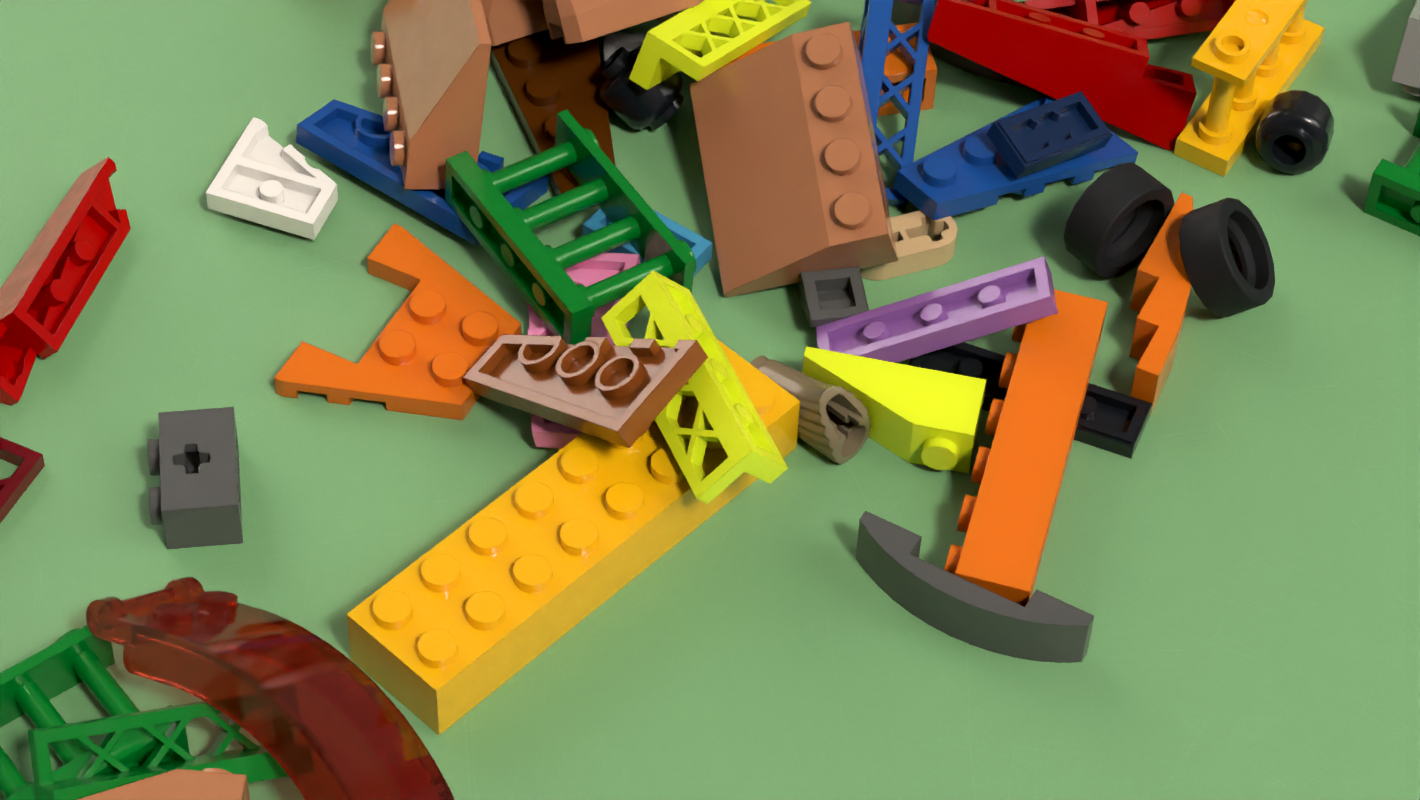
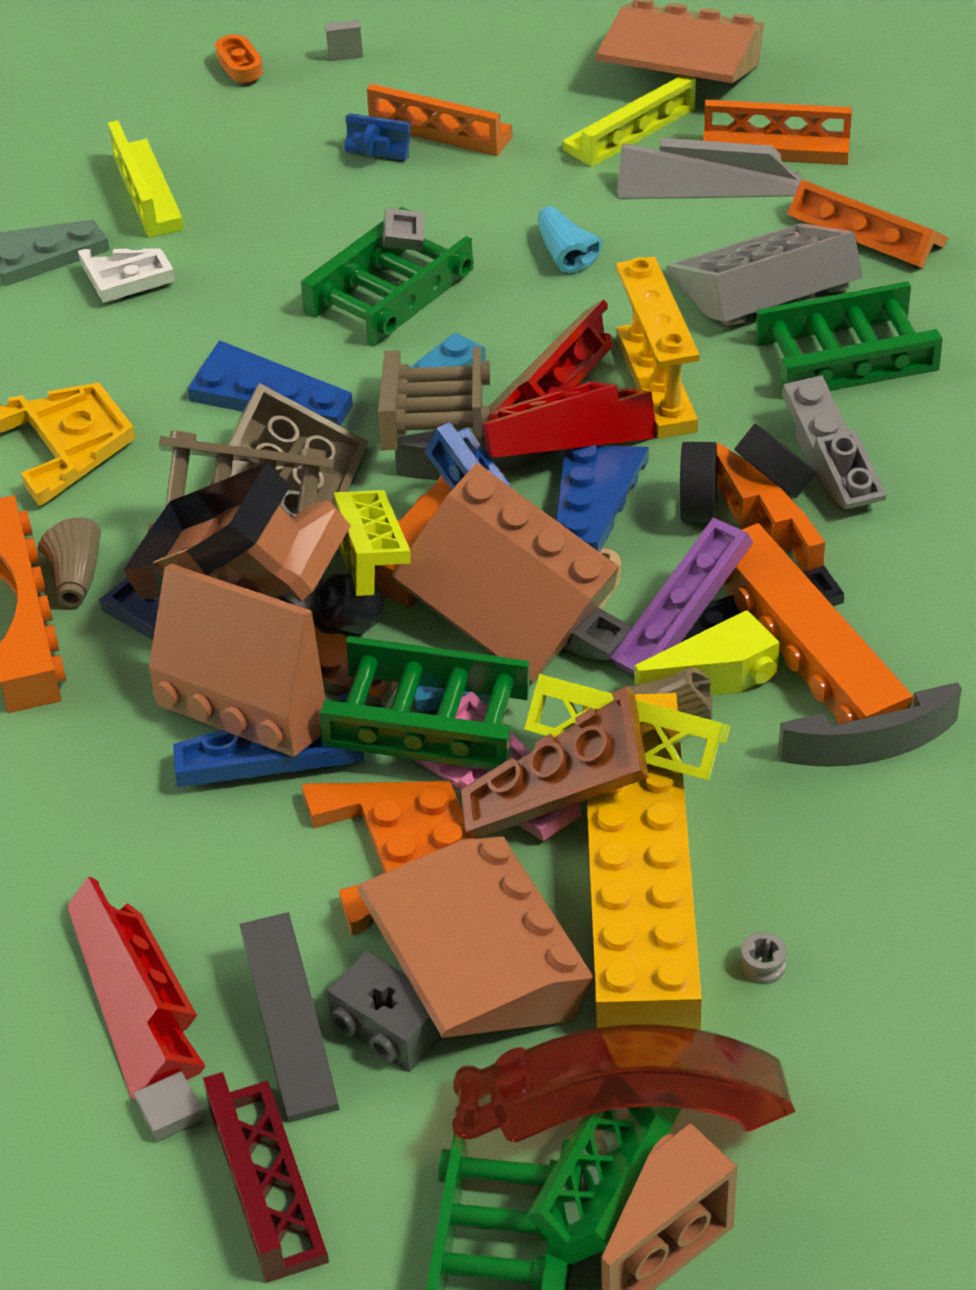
camera: 40 degrees left, 5 degrees down
(113, 413) = (289, 1017): none -> dark grey slope
(272, 185) = (199, 820): white wing -> none
(329, 474) = (478, 940): none -> nougat slope
(586, 729) = (770, 946): none -> light grey bush
(1049, 134) = (609, 464): dark blue plate -> none
(1294, 132) = (713, 380): black head -> none
(1324, 288) = (829, 445): none -> light grey slope

